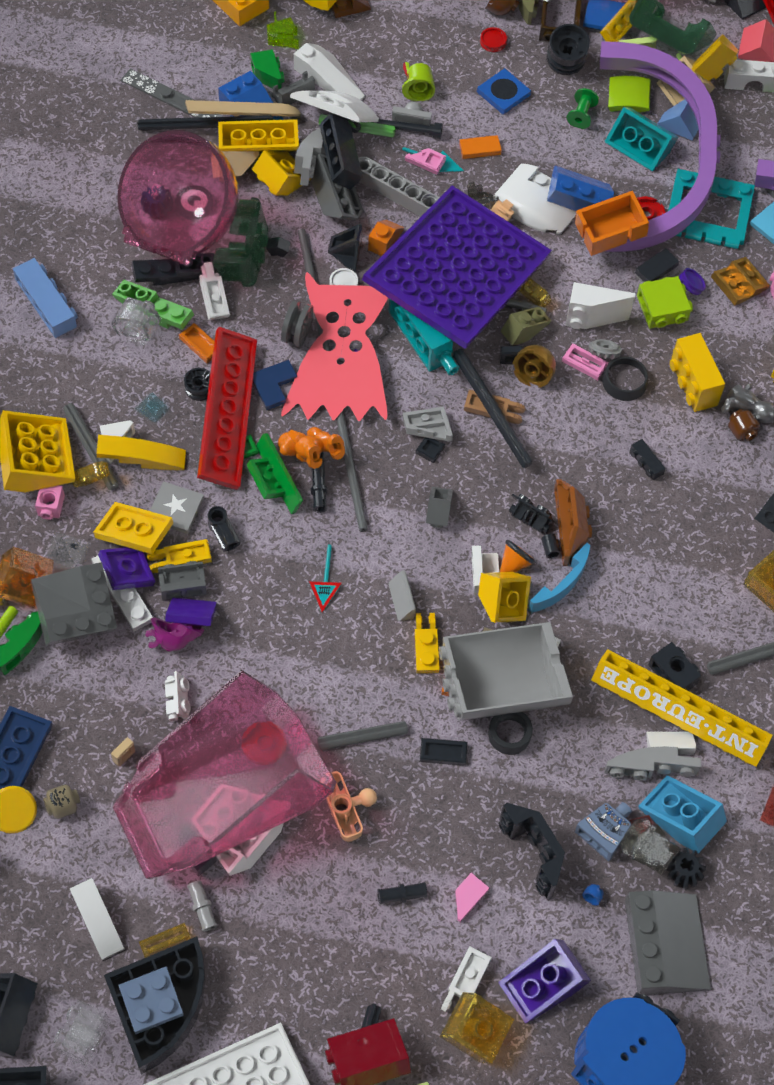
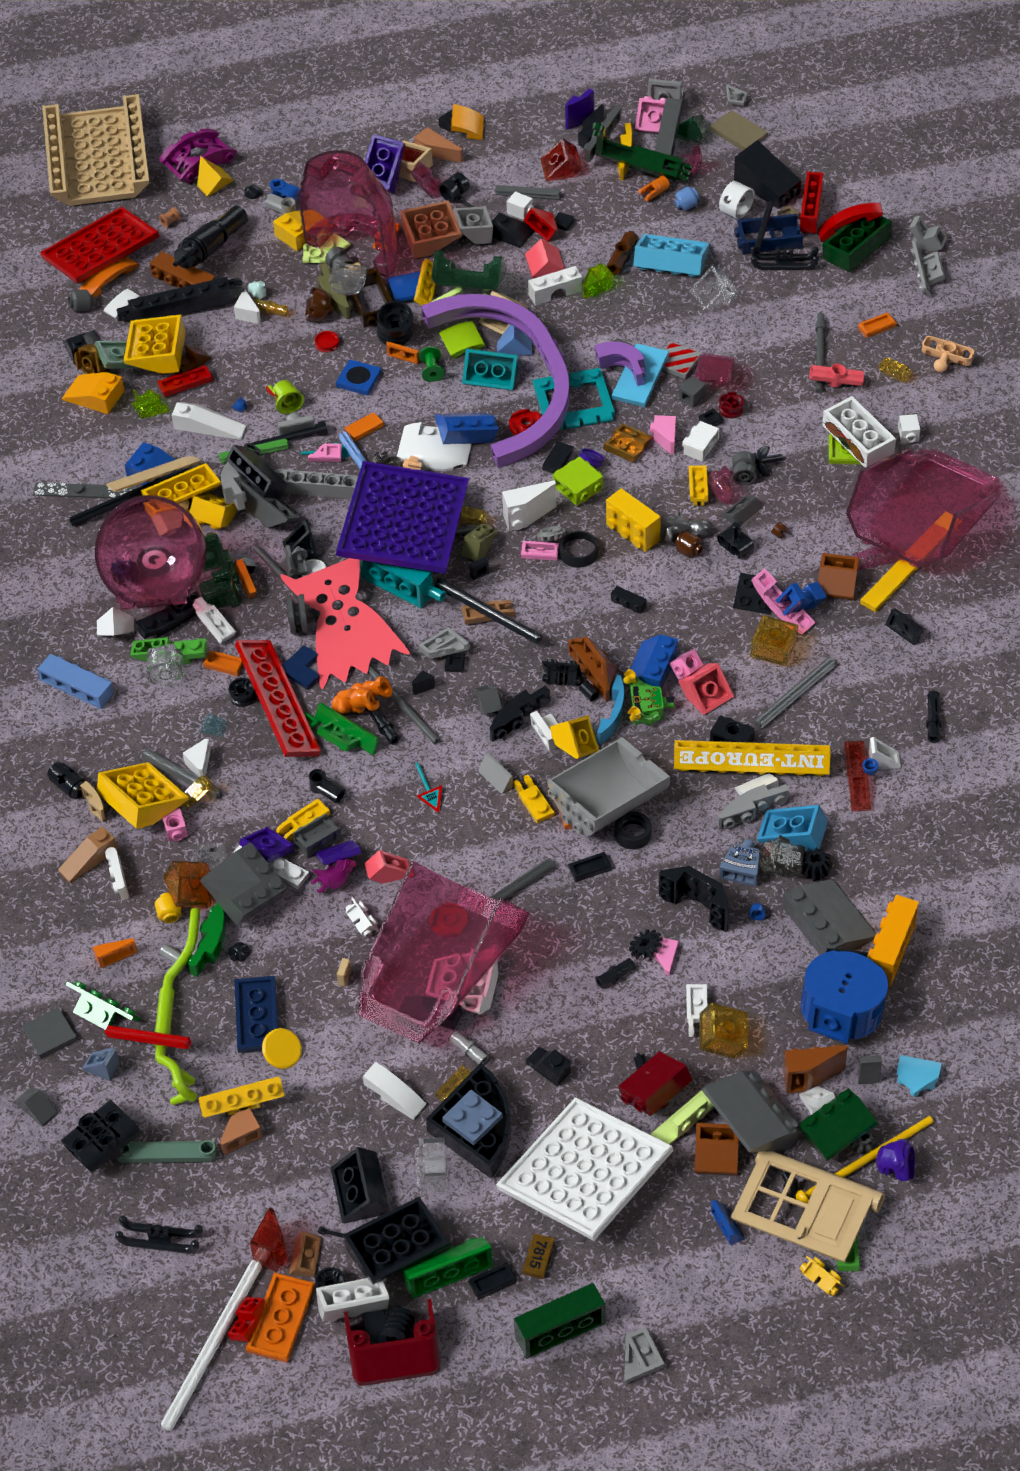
camera: 20 degrees left, 10 degrees down
(35, 674) = (239, 952): none -> black piece
(61, 801) = (317, 1025): dark tan head -> none
(117, 253) = (115, 623): none -> white slope
(133, 527) = (255, 814): yellow plate -> none
(138, 451) = (227, 758): yellow slope -> none
(179, 504) = (277, 788): light grey tile -> none
(233, 652) = (386, 867): none -> coral slope
(266, 68) = (154, 435): green slope -> none
(268, 261) = (245, 578): none -> orange tile
(273, 969) = (550, 1065): none -> black arch
(283, 94) = (187, 443): dark grey hinge -> none
(329, 264) = (296, 561): none -> dark grey hips
(330, 23) = (185, 381): none -> red plate
(338, 103) = (231, 437): white slope -> none
(349, 817) = (544, 937): light nougat piece -> none
(370, 71) = (240, 405): none -> blue hinge
(383, 236) = (327, 525): orange slope -> none
(383, 457) = (423, 683): none -> black slope
(453, 537) = (512, 714): none -> black slope
(454, 166) = (352, 448): none -> medium blue axle
(458, 880) = (653, 943): none -> black gear
(515, 558) = (567, 708): orange hat -> none
(534, 362) = (503, 564): pearl gold cylinder -> none
(544, 980) = (754, 982): dark purple slope -> none
(561, 83) = (403, 353): none -> orange slope
(602, 587) = (646, 701): none -> torso
(611, 223) = (507, 437): orange piece -> none
(633, 546) = (654, 658): none -> blue slope
(667, 564) = (686, 664): none -> bright pink brick
(675, 600) = (706, 688): none -> coral slope
(712, 61) = (518, 283): yellow slope -> none
(726, 1004) = (894, 935): none -> light orange brick

